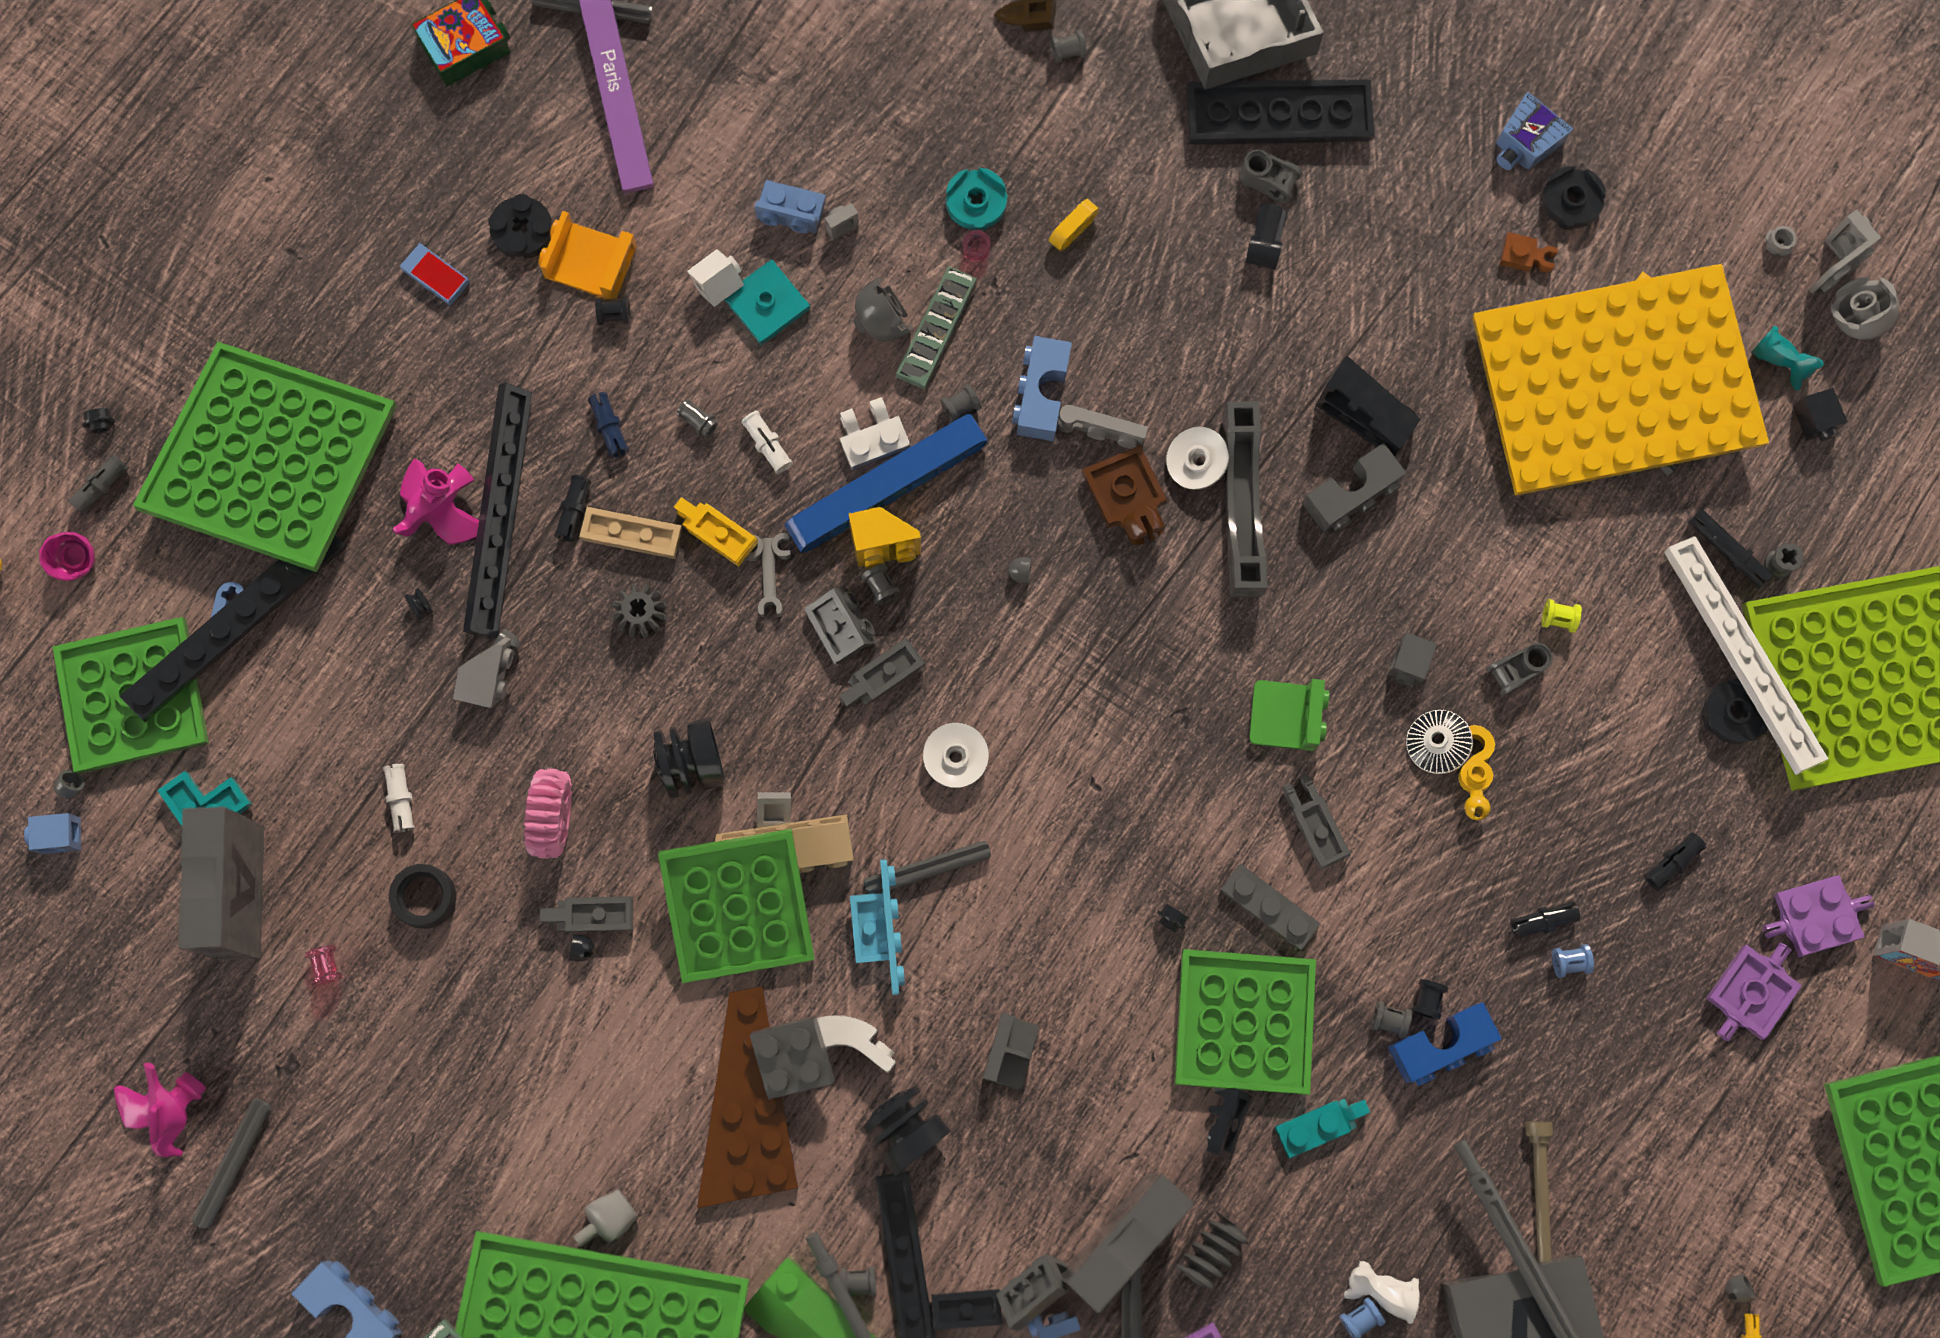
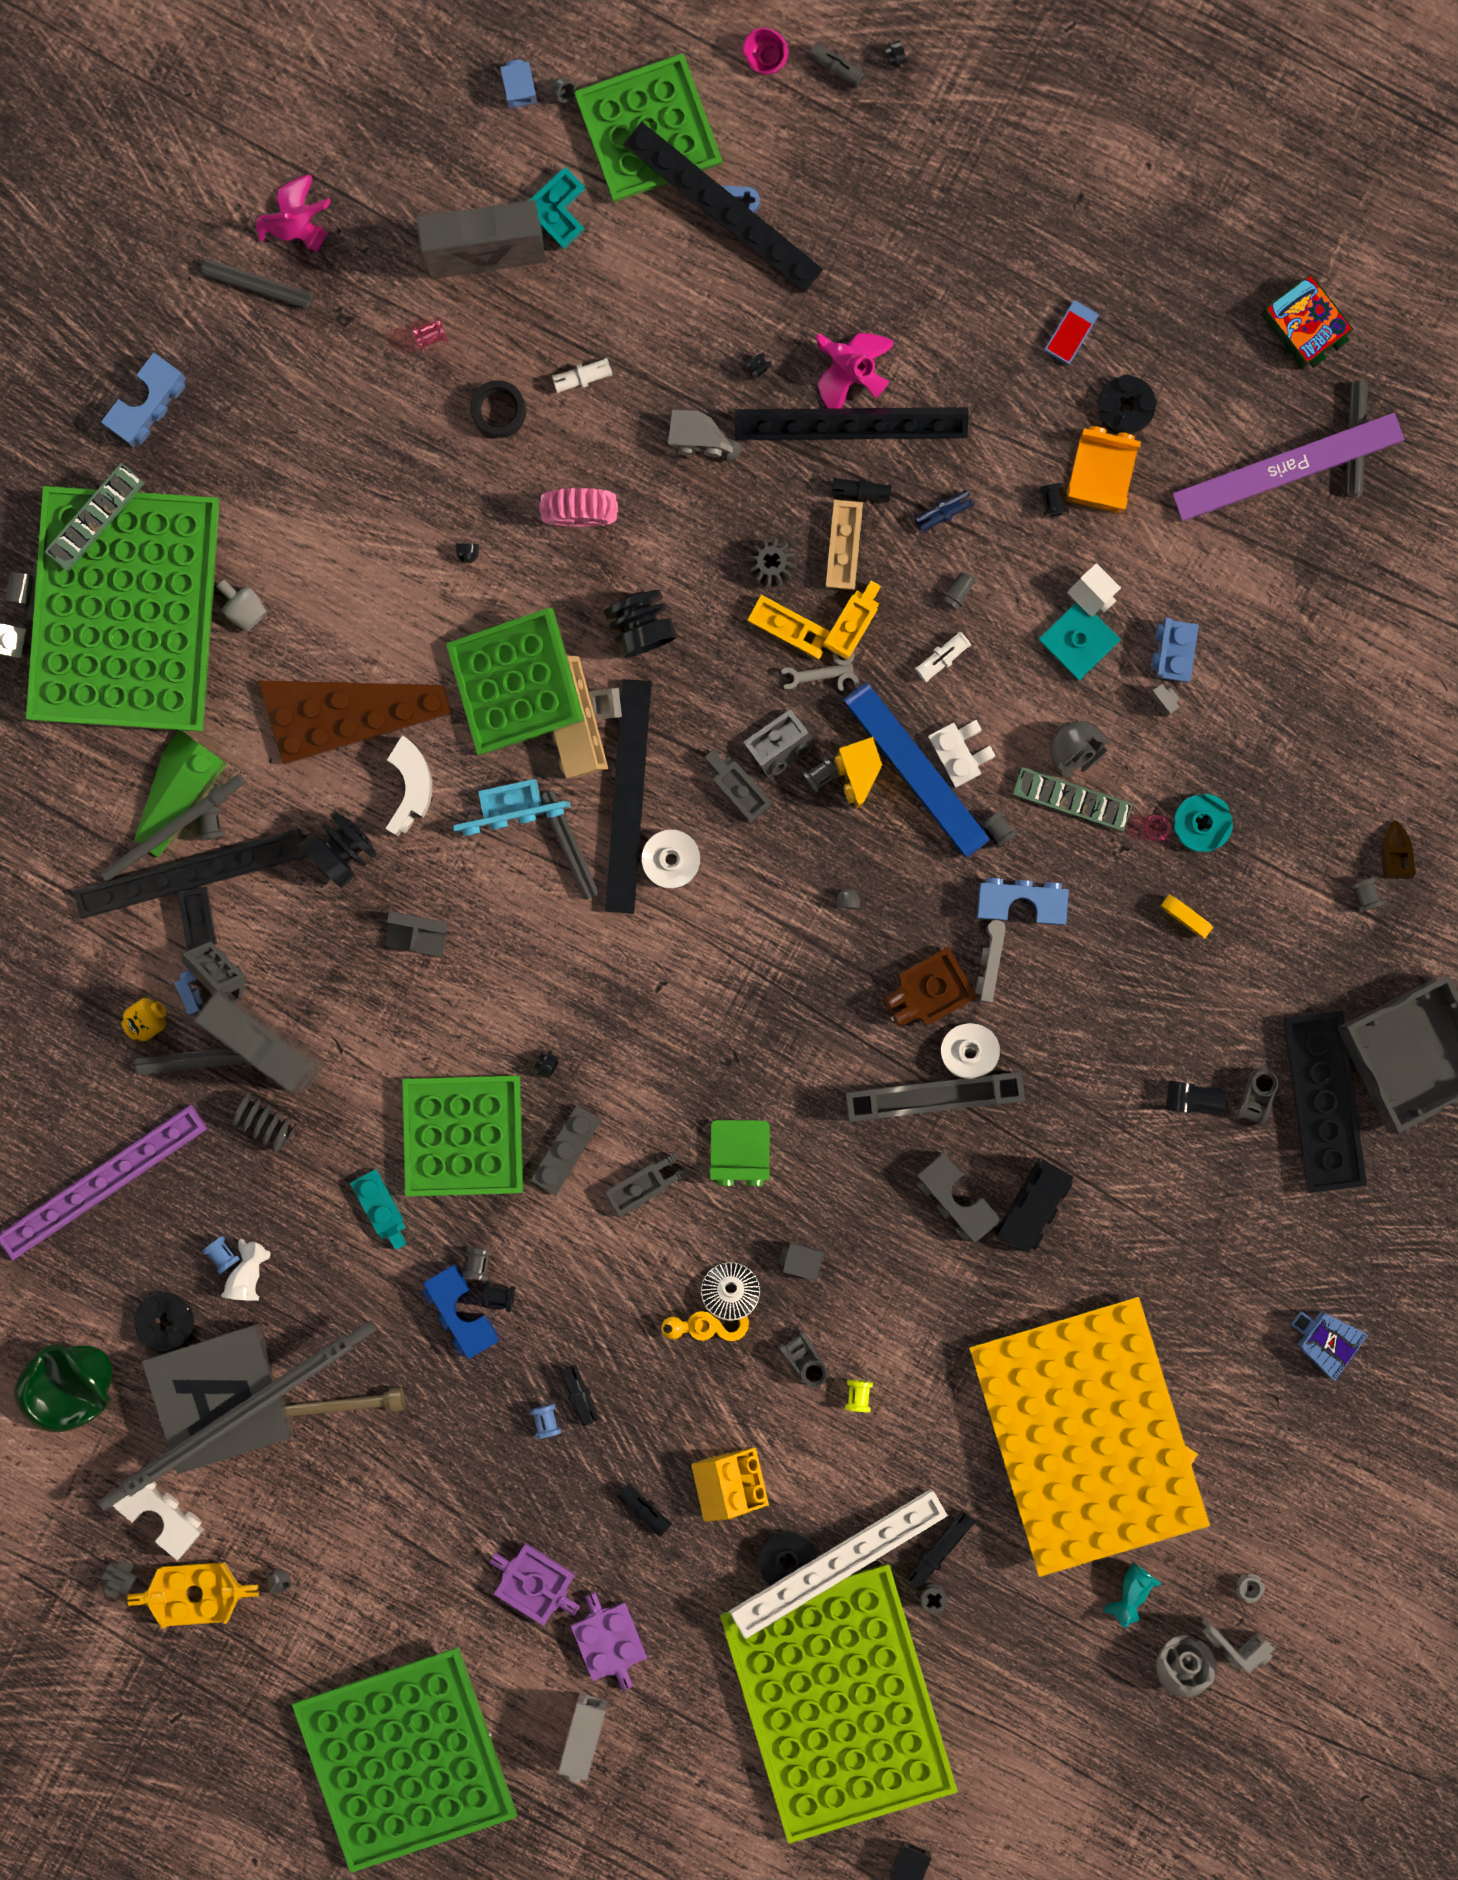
camera: 90 degrees right, 10 degrees up
(265, 456) = (877, 210): bright green plate -> none
(591, 914) = (497, 557): dark grey hinge -> none
(712, 601) = (788, 626): none -> yellow plate
(792, 1057) = (389, 745): dark grey plate -> none
(881, 796) = (628, 796): none -> black tile
(1225, 1134) = (367, 1126): black plate -> none
(1522, 253) = (1211, 1341): dark orange plate -> none
(1571, 214) = (1287, 1389): black plate -> none
(1653, 764) = (729, 1485): none -> yellow slope
(1820, 415) = (1077, 1629): black brick -> none

